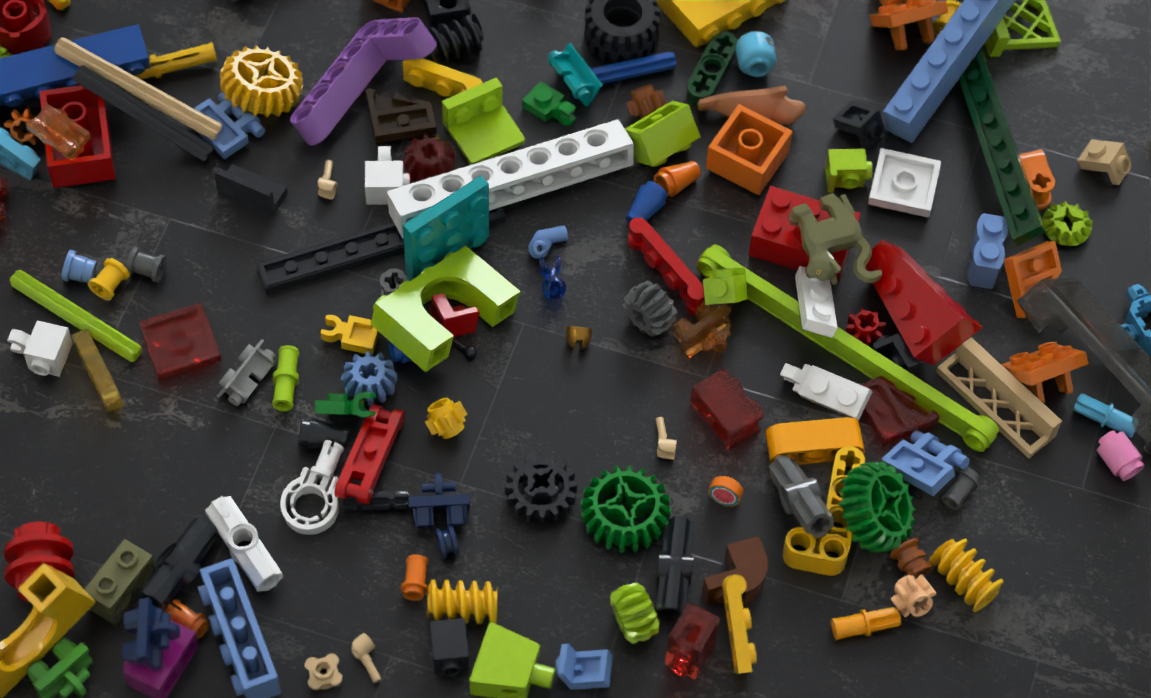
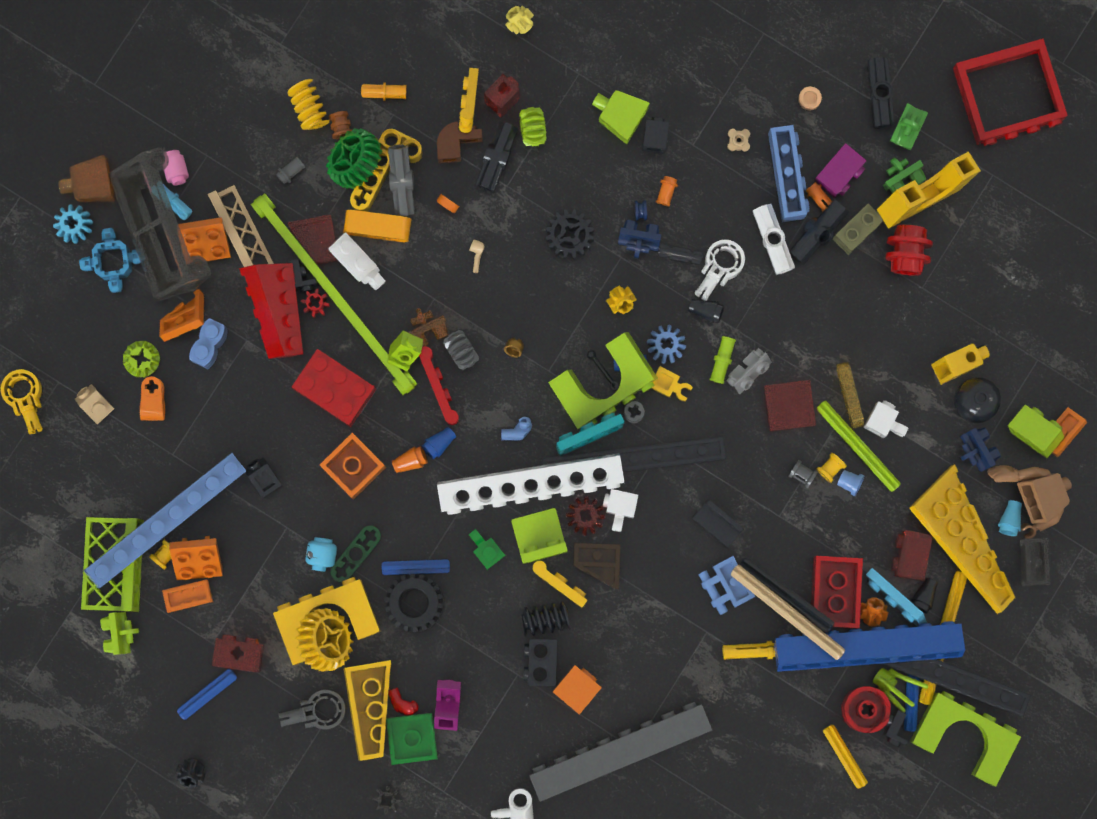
camera: 165 degrees left, 25 degrees up
(59, 131) = (851, 575): clear orange hips -> none
(153, 635) = (844, 172): dark blue hips -> none
(261, 81) = (687, 604): yellow gear -> none
(326, 186) = (663, 512): tan hand -> none
(338, 404) = (688, 323): green plate -> none
(355, 68) = (627, 603): medium lavender beam -> none
(360, 648) = (711, 151): tan hand -> none
(369, 454) = (677, 284): red plate -> none
(455, 319) = (598, 379): red panel -> none
(462, 601) = (640, 162): yellow piece -> none
(553, 286) = (521, 393): clear blue arm -> none
(575, 73) = (463, 576): teal hinge -> none
(584, 668) = (573, 101): medium blue bracket -> none
(603, 517) = (507, 205): green gear -> none
(645, 101) = (415, 528): dark orange gear -> none
(663, 133) = (411, 495): lime brick -> none
(726, 408) = (429, 264): clear red brick -> none
(767, 102) = (335, 508): nougat animal -> none
(815, 304) = (344, 326): white plate -> none
(832, 235) = (321, 361): olive animal -> none
(847, 168) = (285, 436): lime brick -> none
(904, 182) = (247, 418): white plate -> none
(913, 595) = (349, 97): light nougat gear -> none
(921, 467) = (314, 187): medium blue plate -> none
(1001, 151) = (171, 420): dark green plate -> none

